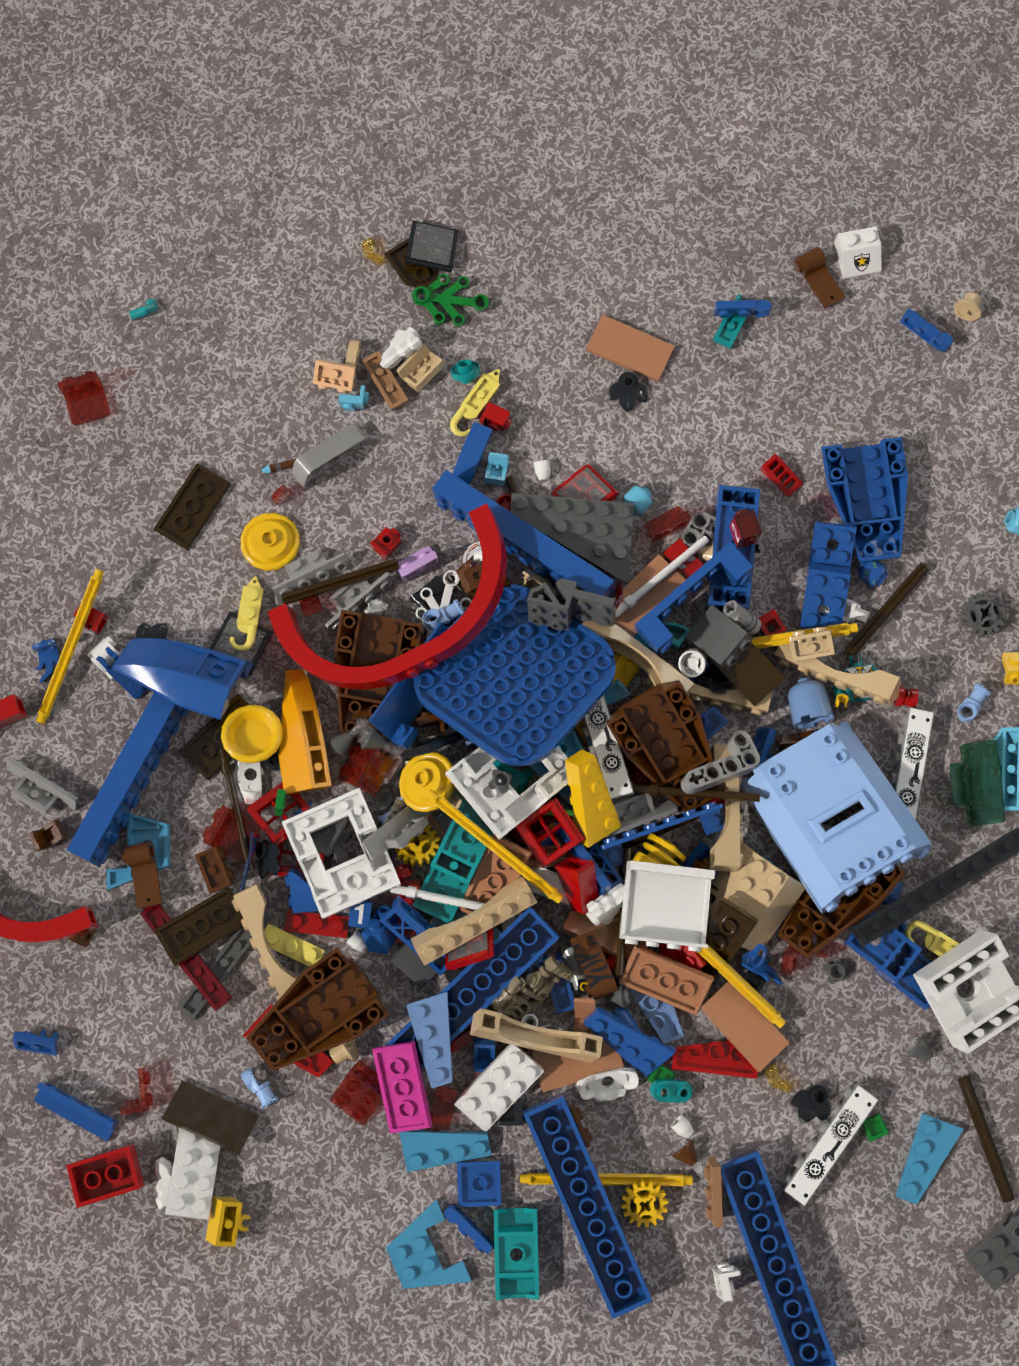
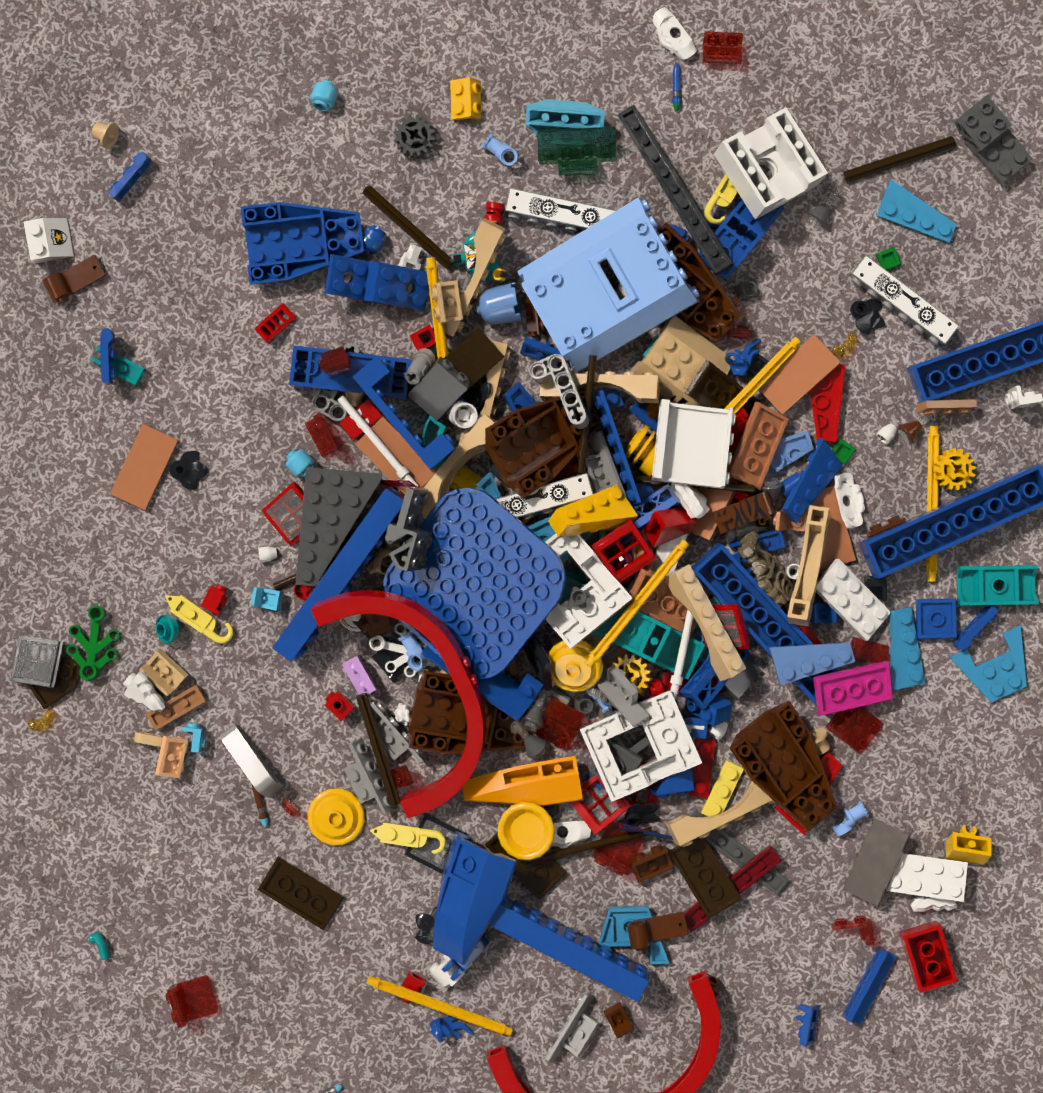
camera: 90 degrees left, 10 degrees up
(280, 802) = (591, 803): green tile -> none
(472, 452) = (253, 623): blue slope -> none
(672, 1090) = (855, 441): teal plate -> none

